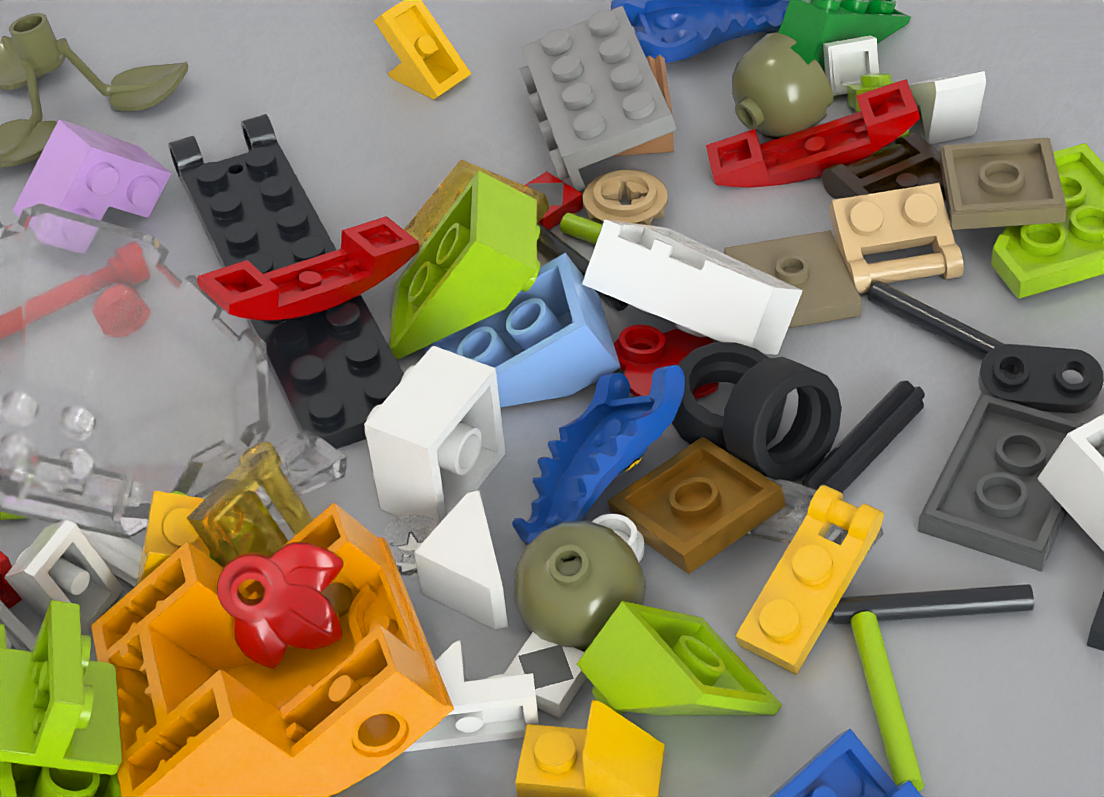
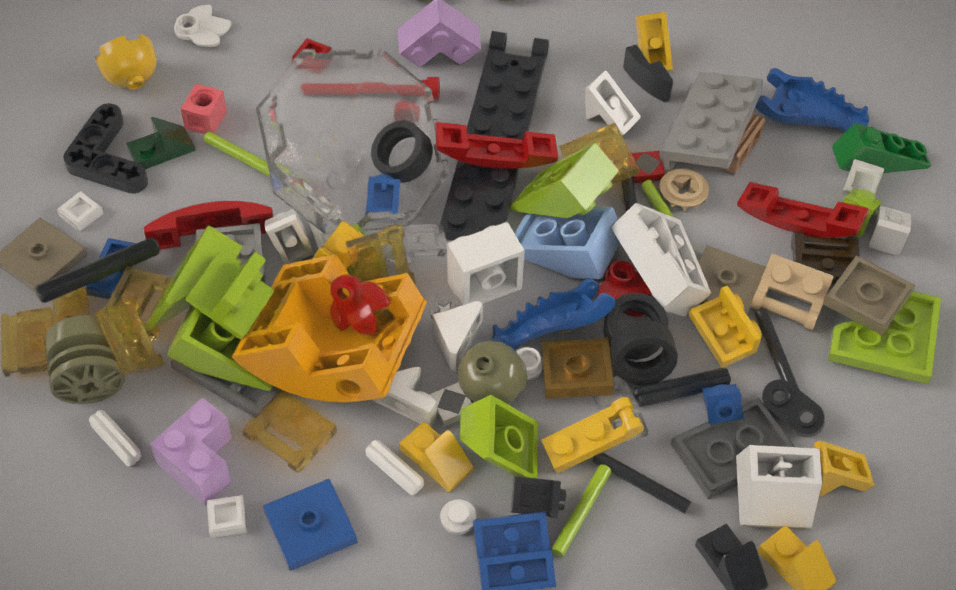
camera: 30 degrees right, 10 degrees up
(136, 331) = (387, 140): none -> black tyre
(177, 432) = (382, 194): none -> blue bracket
(423, 141) = (608, 100): none -> white slope
(450, 92) = (650, 77): none -> black slope
(778, 89) = (804, 173): olive cylinder -> none
(811, 716) = (537, 495): none -> black bracket
(857, 326) = (726, 327): none -> yellow bracket
(948, 423) = (723, 403): none -> blue bracket

